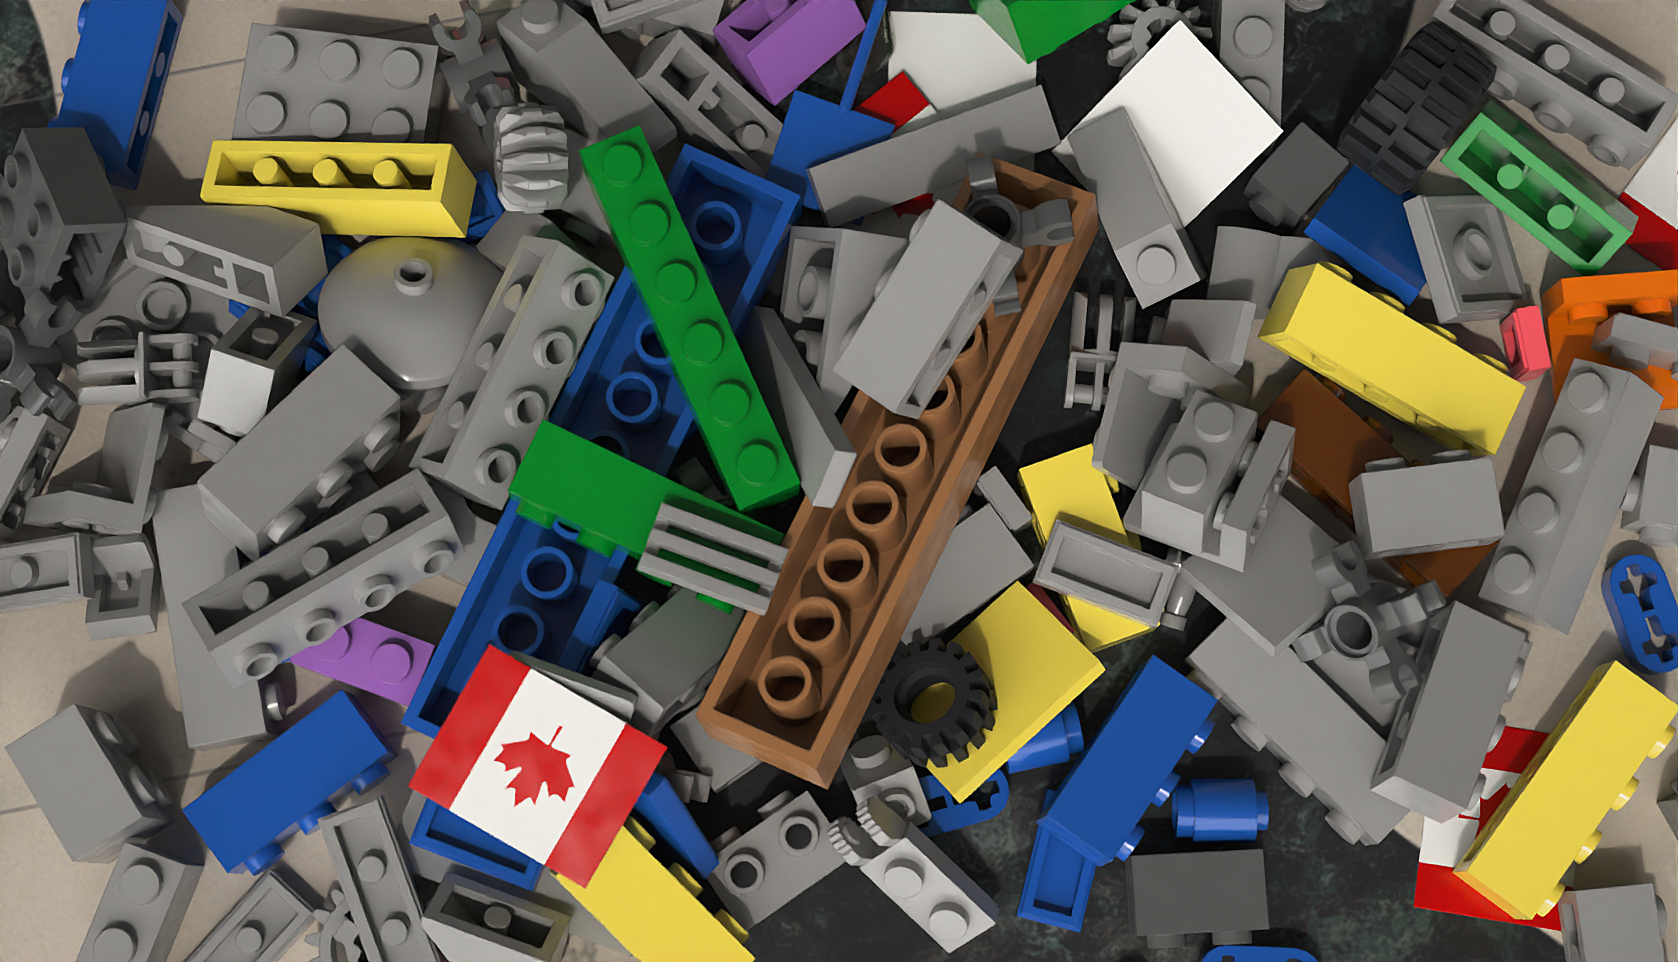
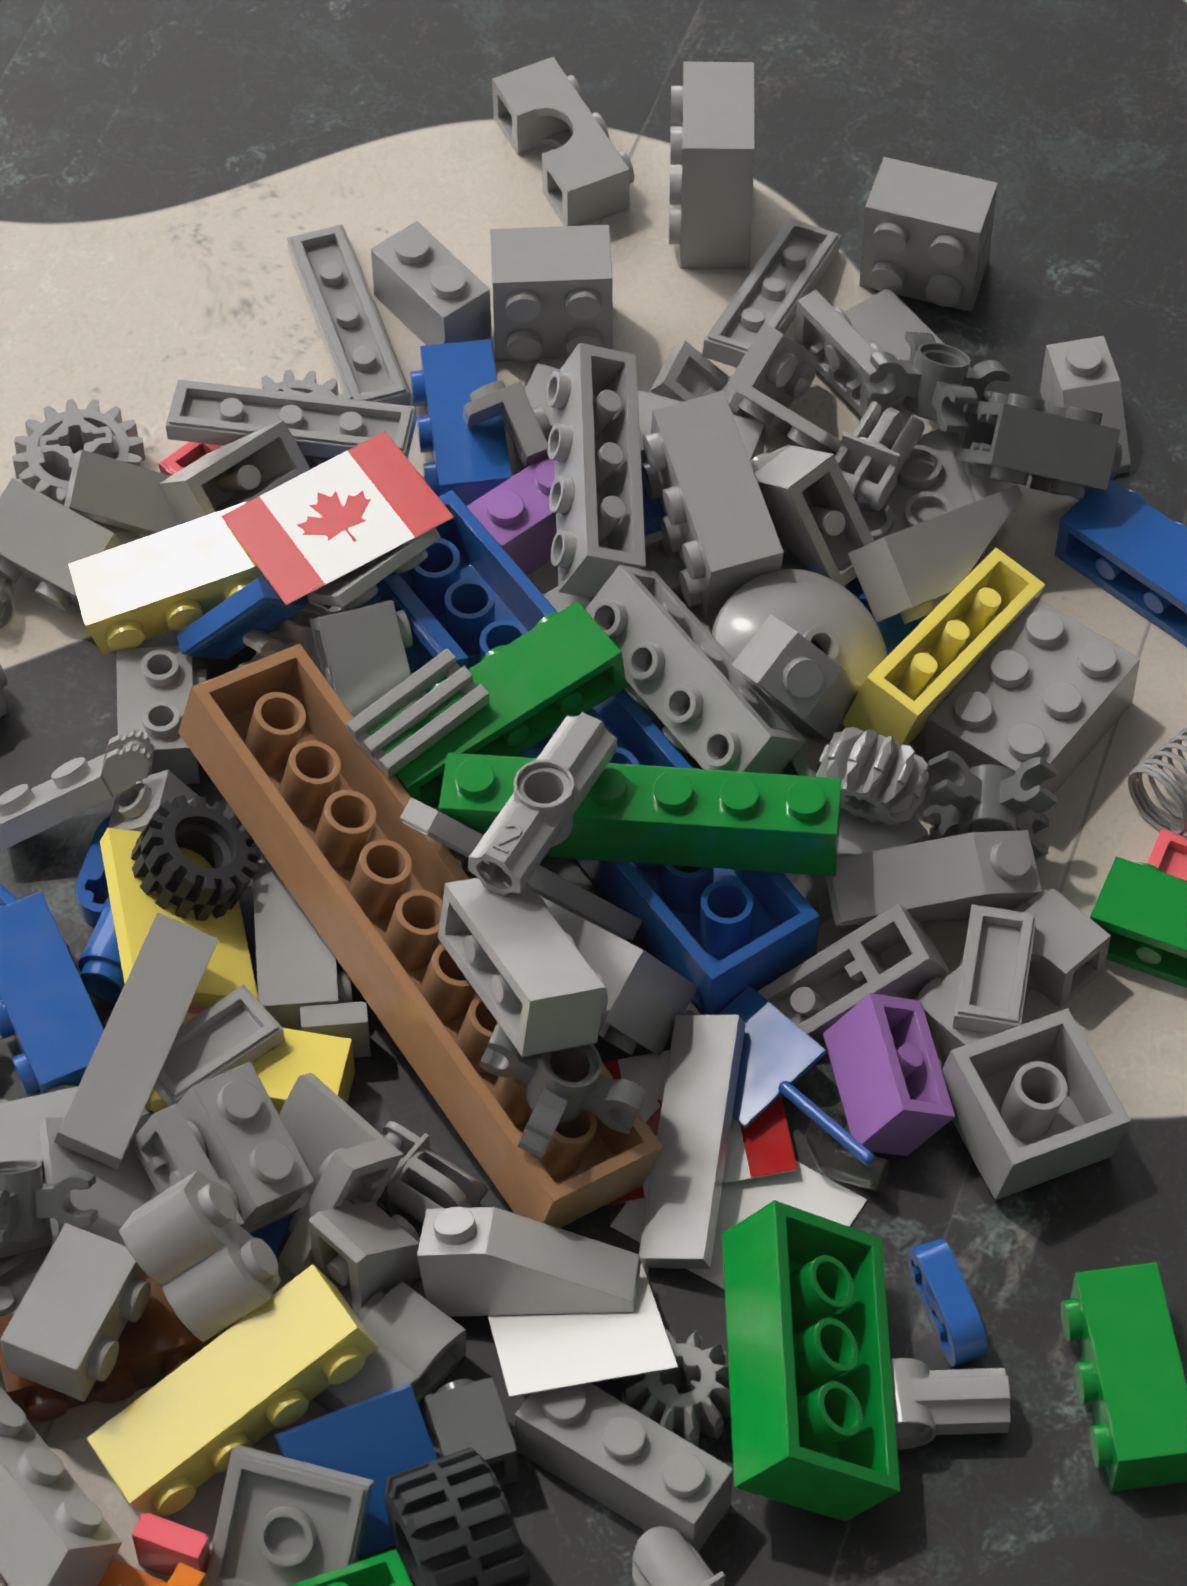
camera: 120 degrees right, 25 degrees down
(282, 701) = (526, 425): none -> light grey bracket
(470, 266) = (798, 676): none -> light grey slope
(729, 364) = (542, 804): none -> light grey piece
(1154, 620) = (136, 1041): none -> light grey tile
(1331, 427) = (201, 1255): none -> light grey brick

